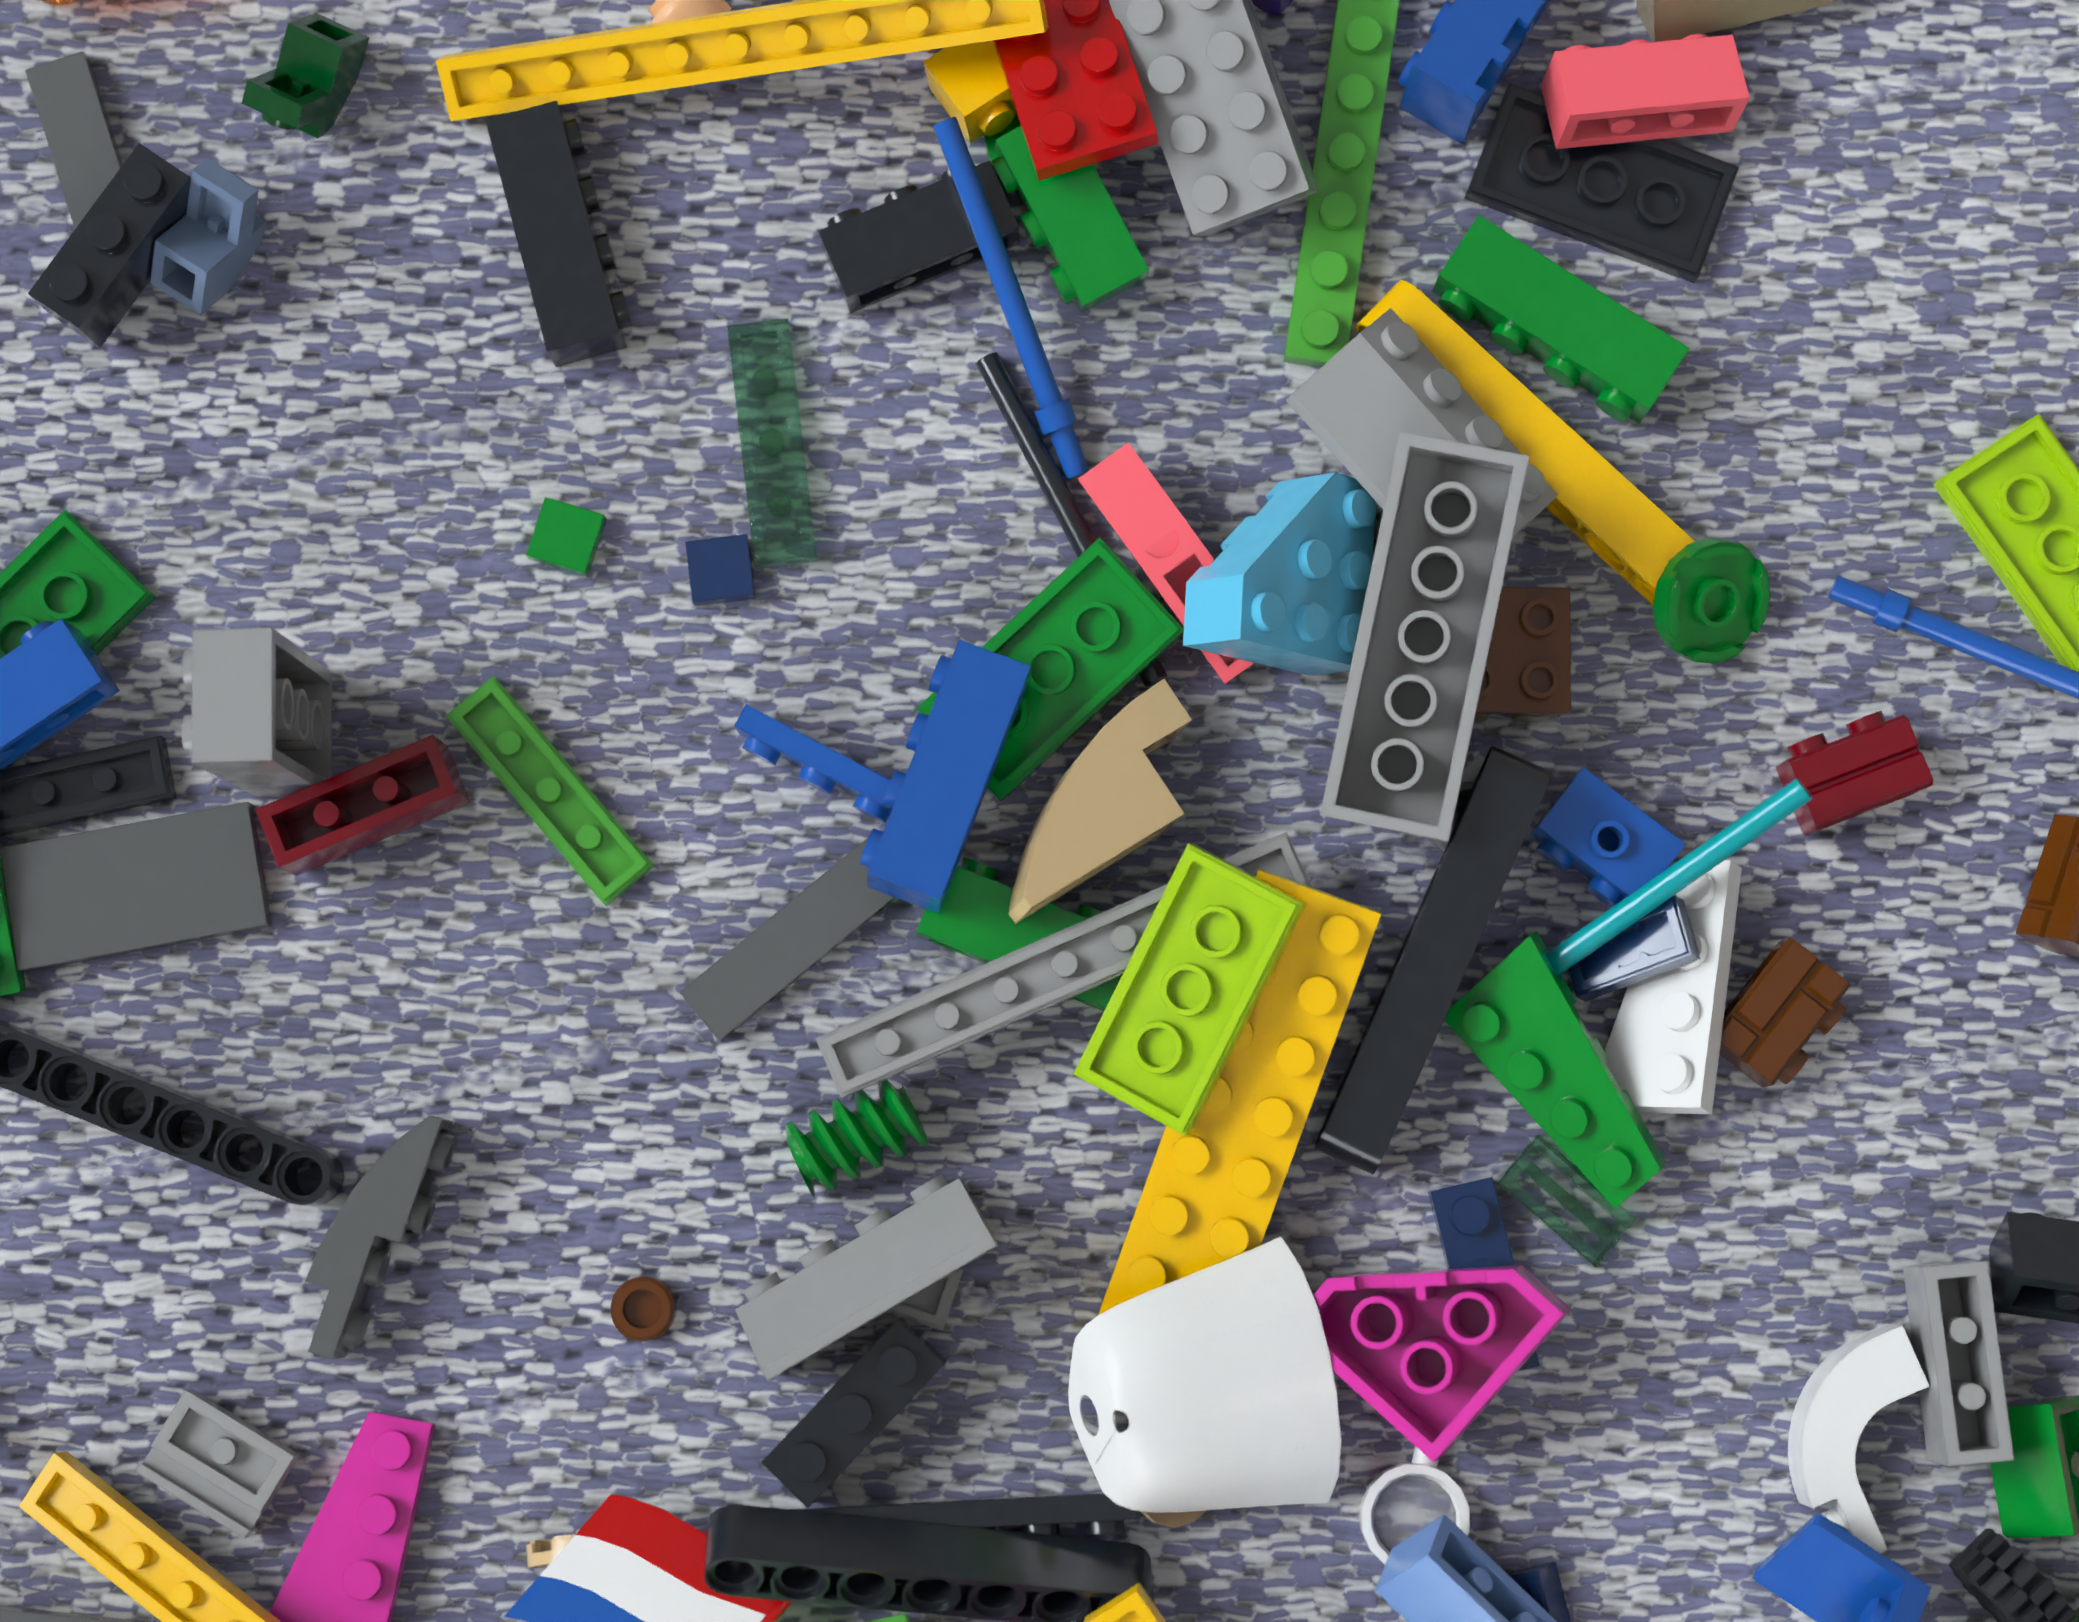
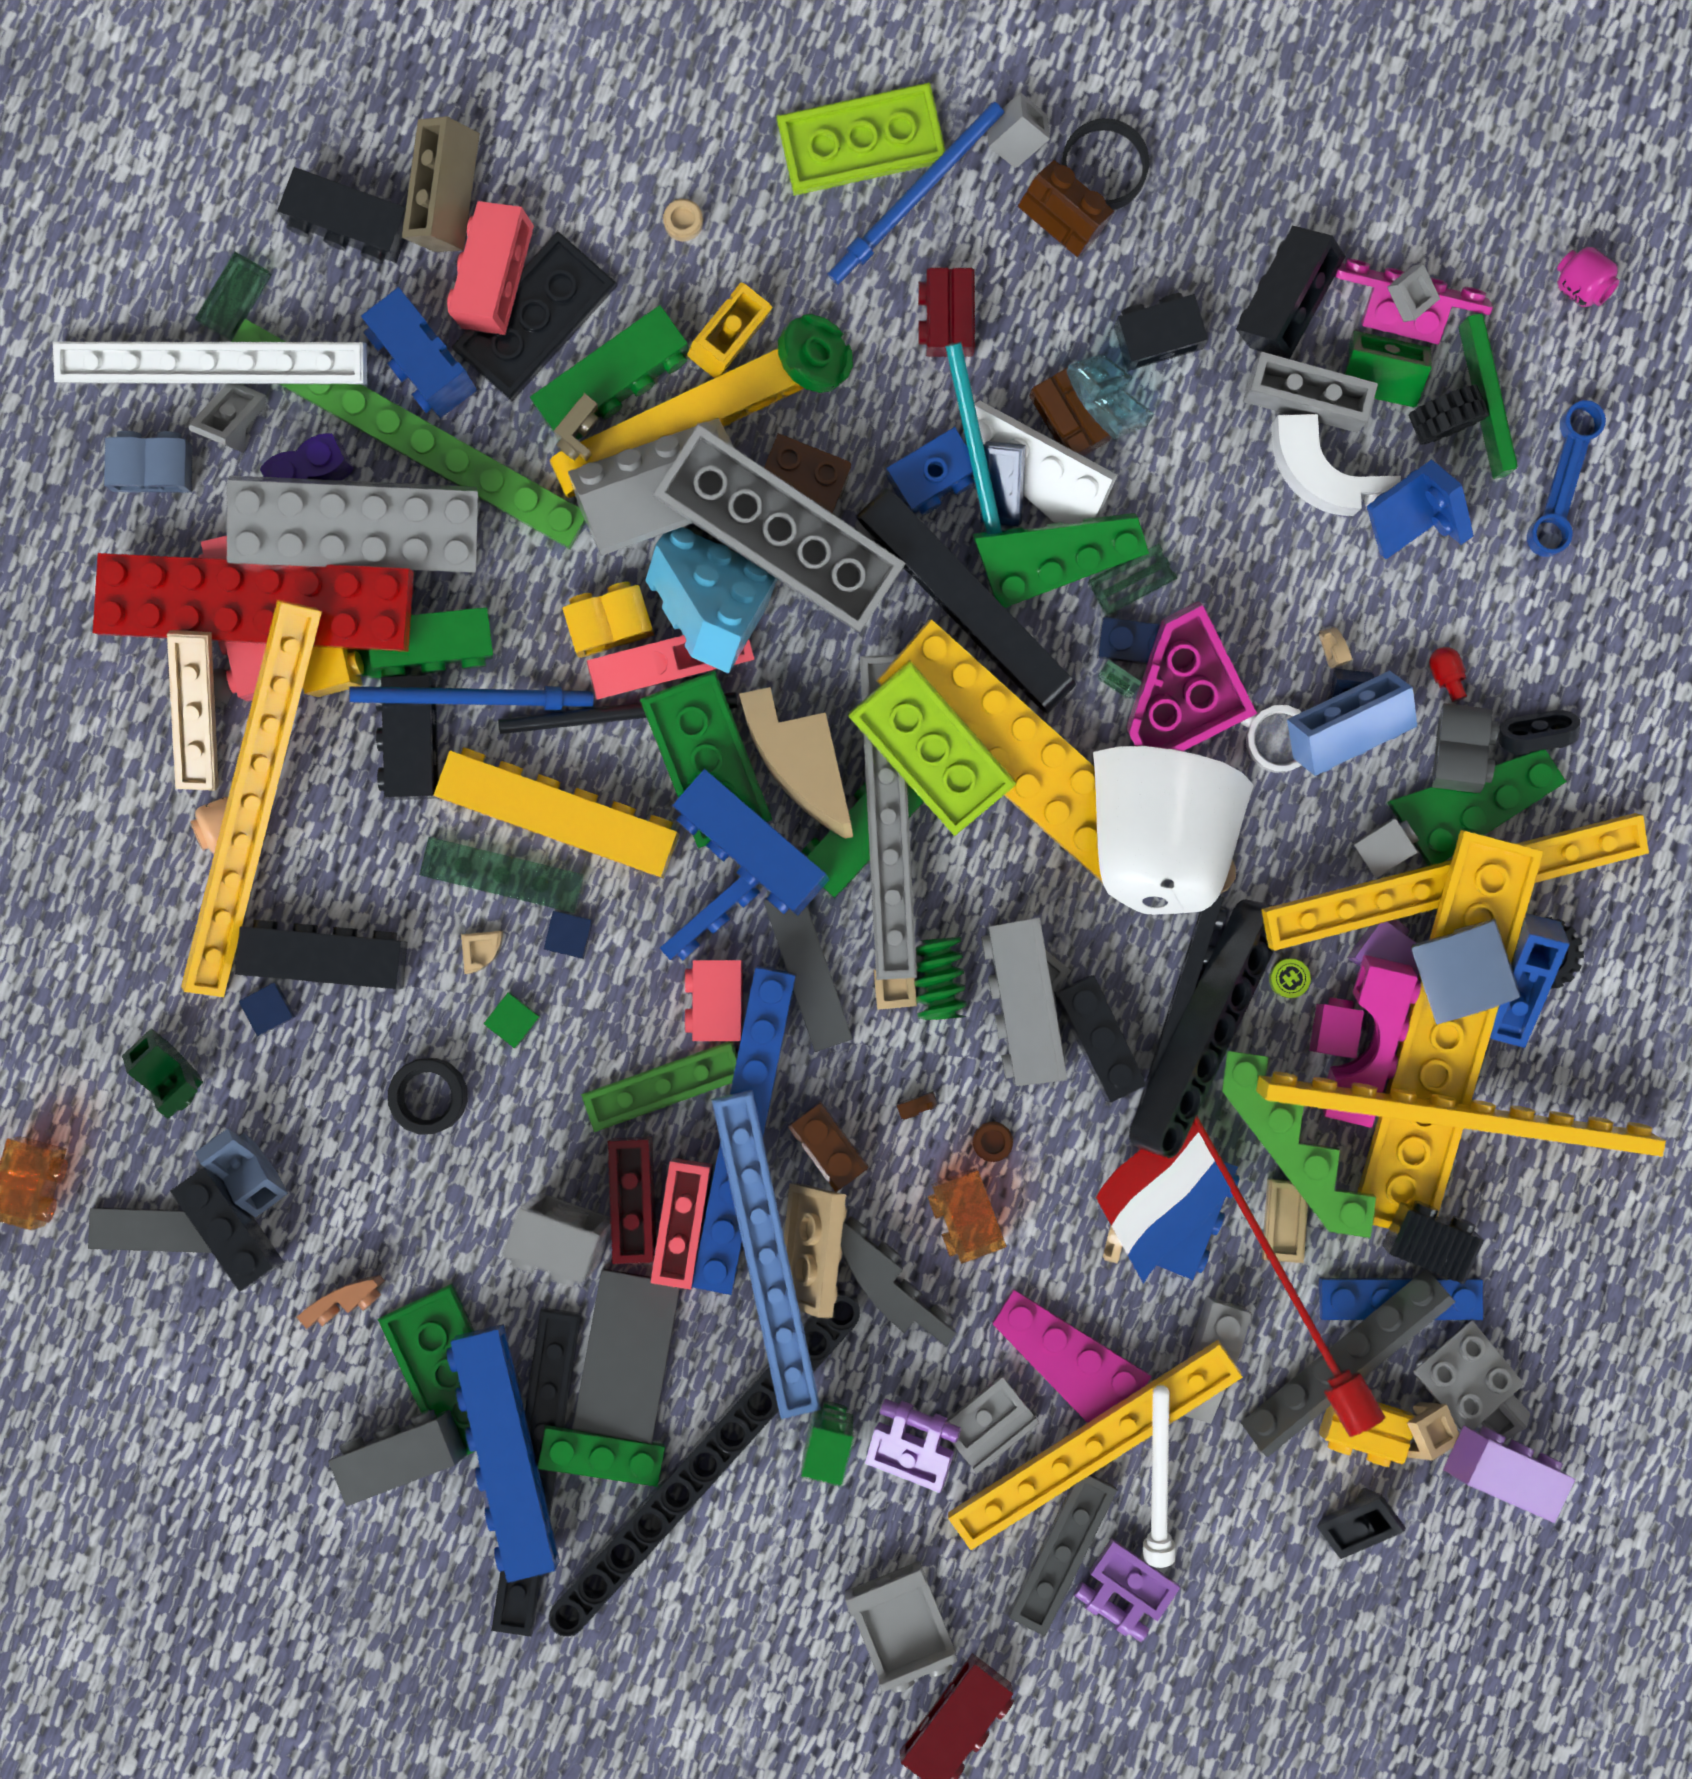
camera: 75 degrees left, 5 degrees up
(80, 455) = (357, 1293): none -> nougat slope
(96, 1225) = (828, 1444): none -> green brick
(128, 1359) = (908, 1455): none -> plate
(347, 1028) = (766, 1254): none -> medium blue tile
(353, 890) = (681, 1223): none -> coral brick
(378, 424) = (397, 1103): none -> black tyre
(380, 1096) = (814, 1246): none -> tan plate
(456, 187) = (267, 1009): none -> dark blue tile
(514, 1311) = (968, 1216): none -> clear orange brick
(524, 929) = (754, 1071): none -> blue brick
(545, 1064) = (828, 1146): none -> reddish brown brick
(649, 1166) = (916, 1105): none -> reddish brown tile
(651, 453) = (480, 949): none -> tan tile
(700, 817) = (715, 1000): none -> coral brick
(809, 1079) = (895, 993): none -> tan tile
(889, 486) = (556, 813): none -> yellow brick
(1200, 451) = (608, 619): none -> yellow brick
(1406, 1235) = (1118, 680): none -> clear green tile
(1472, 295) = (578, 420): none -> dark tan bracket
(1580, 1554) = (1336, 650): none -> tan tile
(1693, 462) = (729, 330): none -> yellow brick
(1827, 1045) = (1102, 391): none -> clear light blue slope
(1829, 339) = (683, 220): none -> tan tile
(1957, 1099) = (1160, 331): none -> black brick

